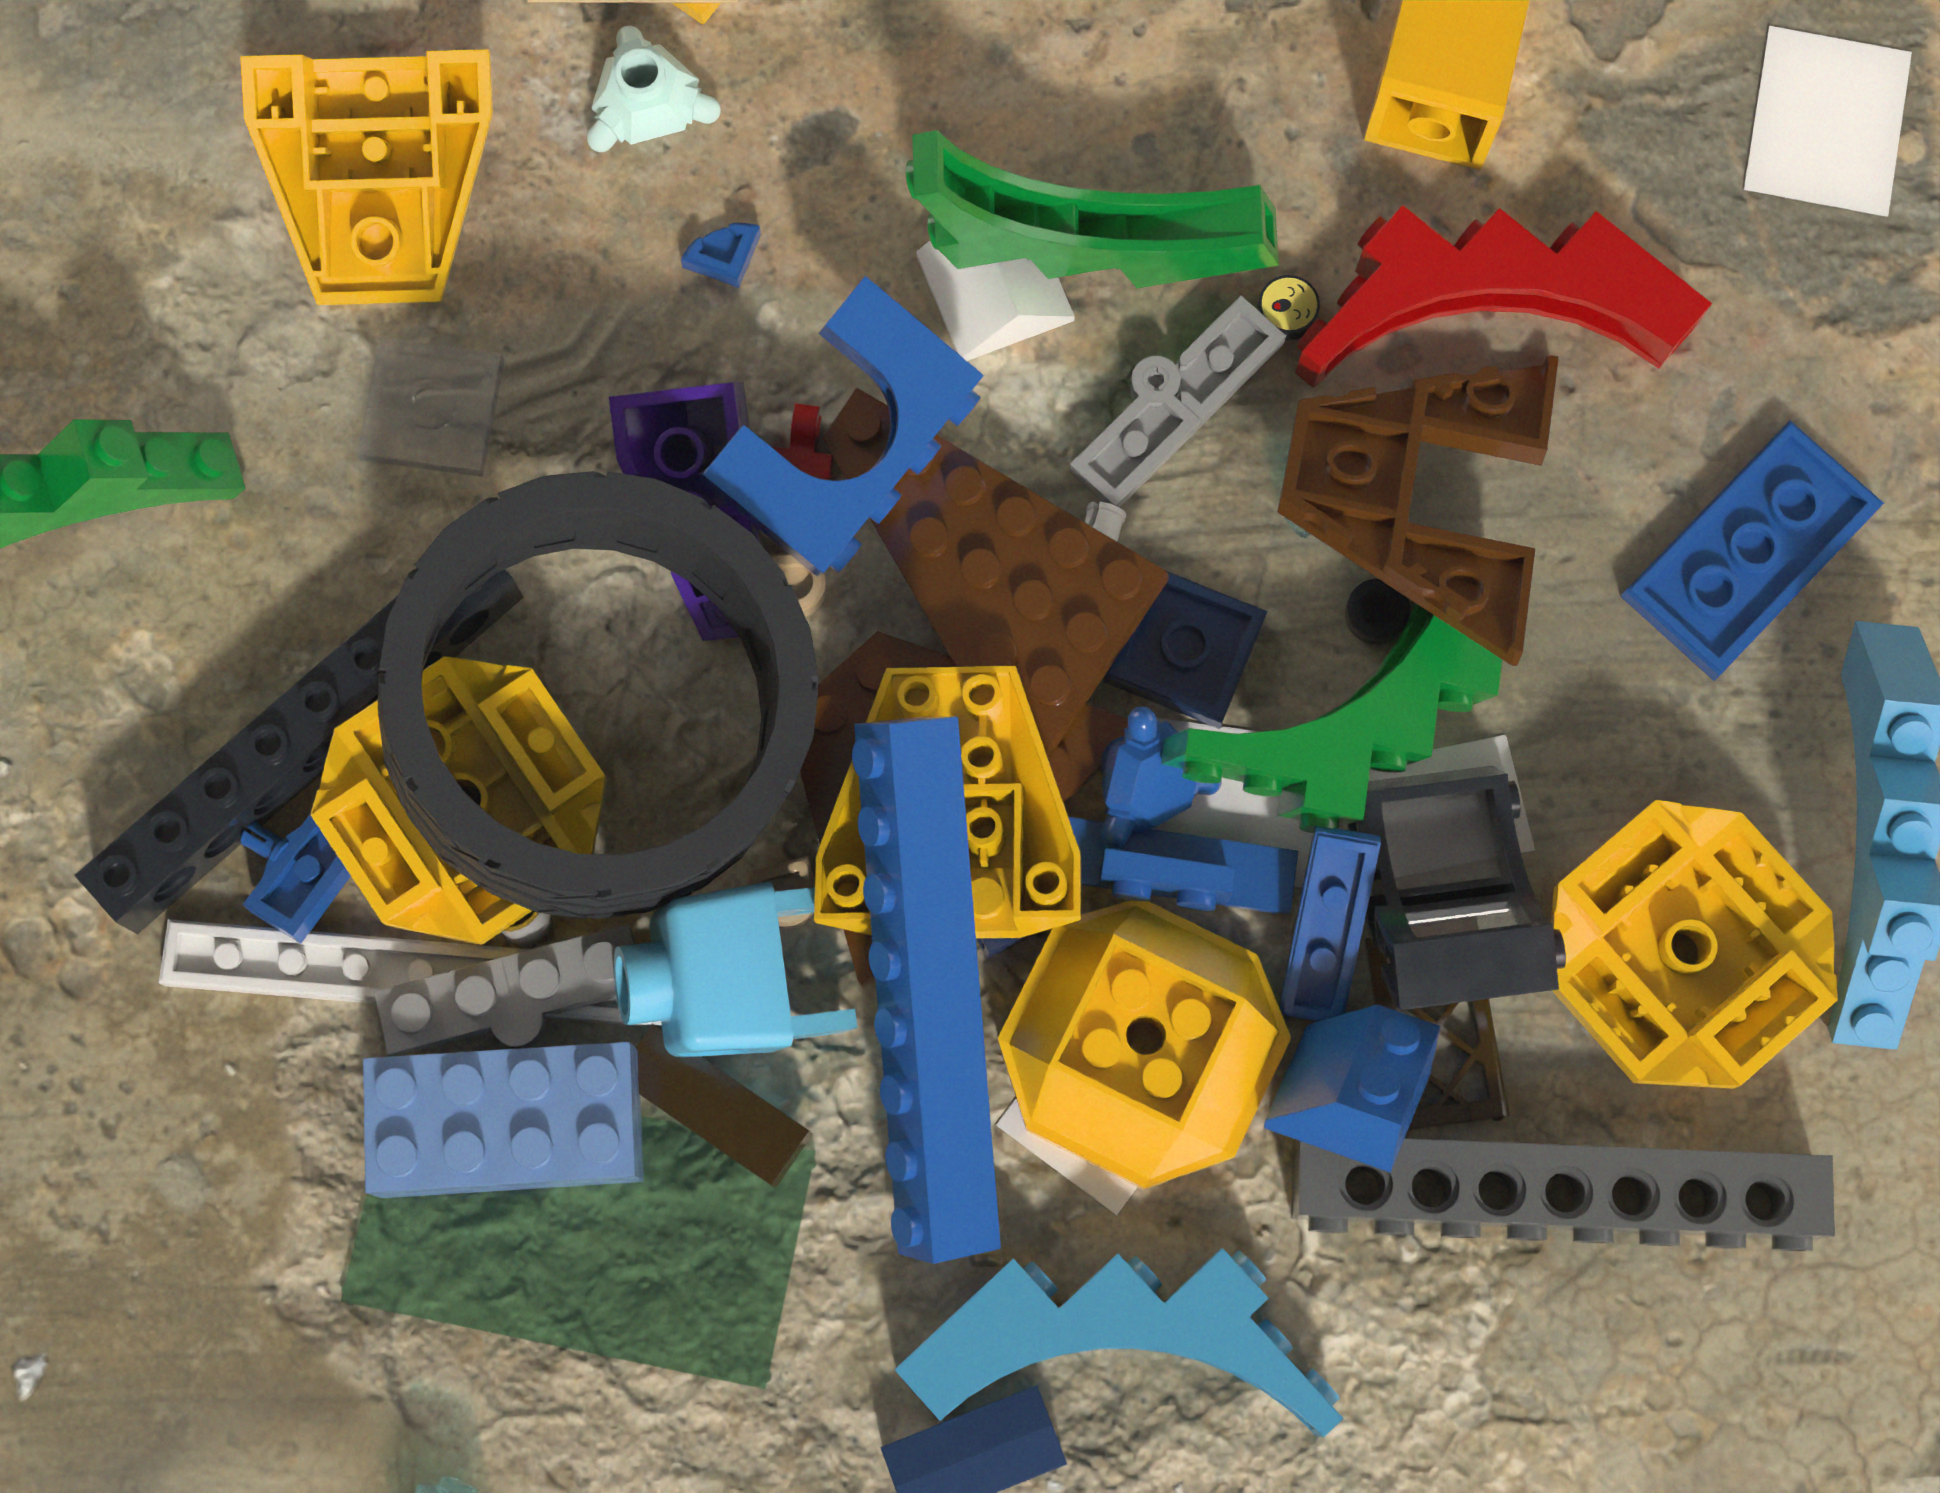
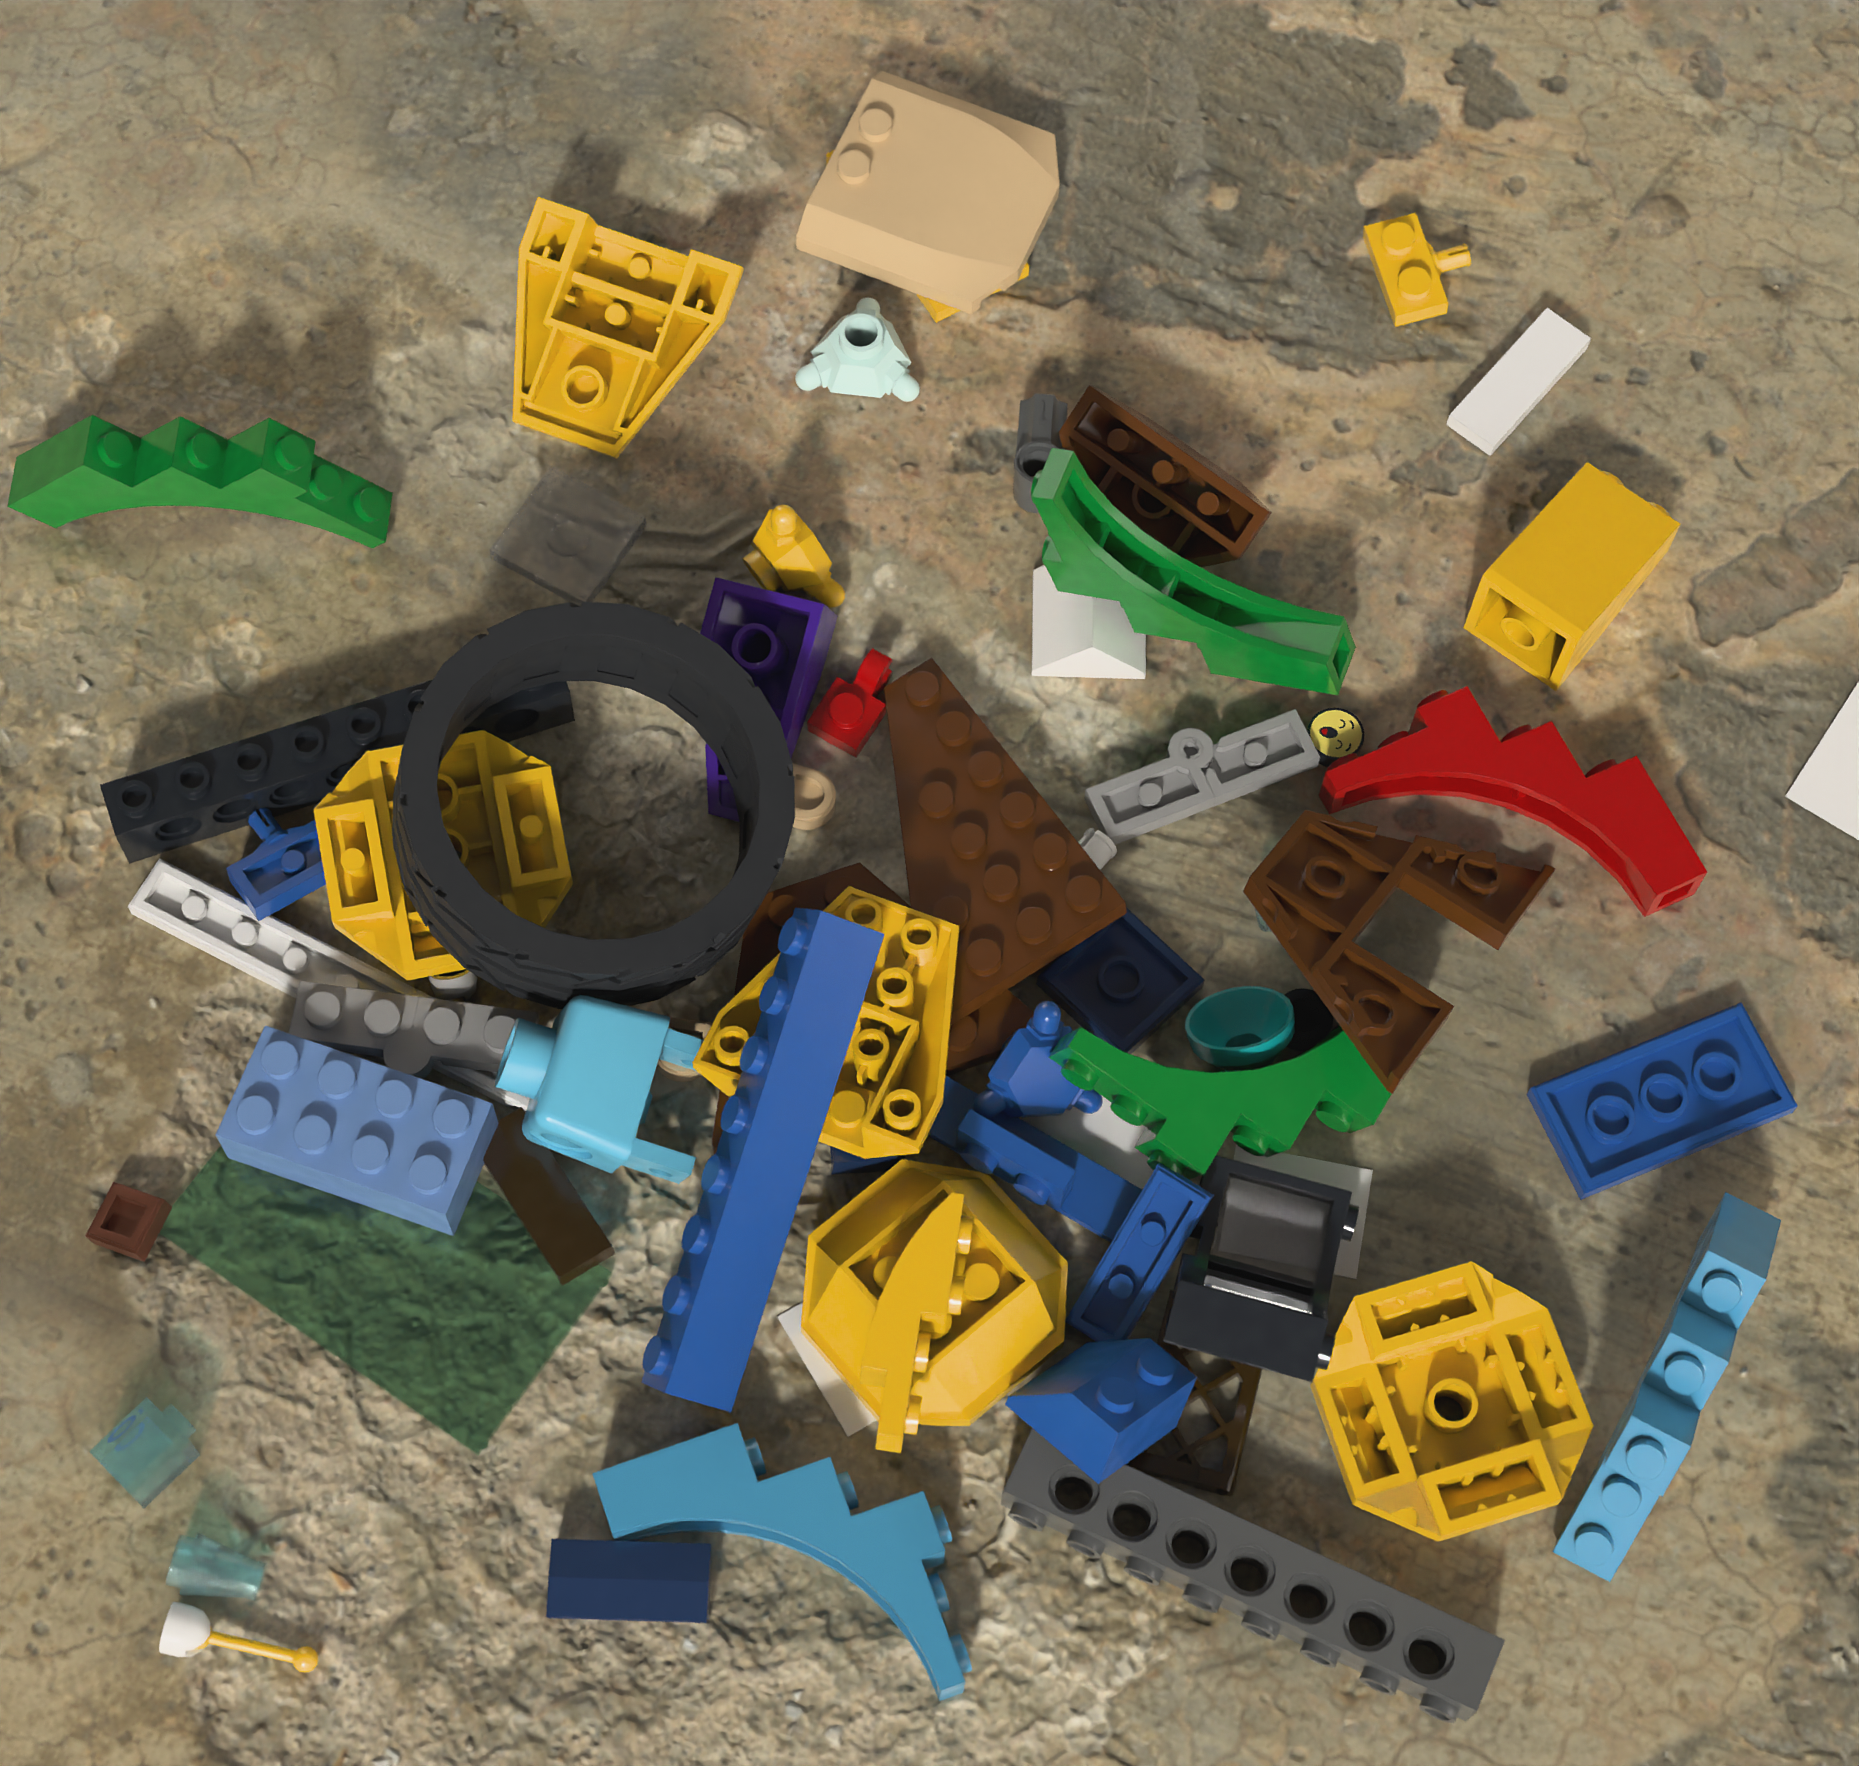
camera: 20 degrees right, 10 degrees down
(312, 1306) = (128, 1221): none -> copper tile
(671, 340) = (792, 558): none -> yellow rock
(723, 253) = (869, 509): blue tile -> none
(871, 124) = (1037, 434): none -> dark grey piece
(923, 389) = (849, 742): blue arch -> none
(1011, 111) = (1162, 482): none -> reddish brown wedge
(1143, 1065) = (913, 1300): none -> yellow slope
(1316, 637) = (1241, 1027): none -> teal piece

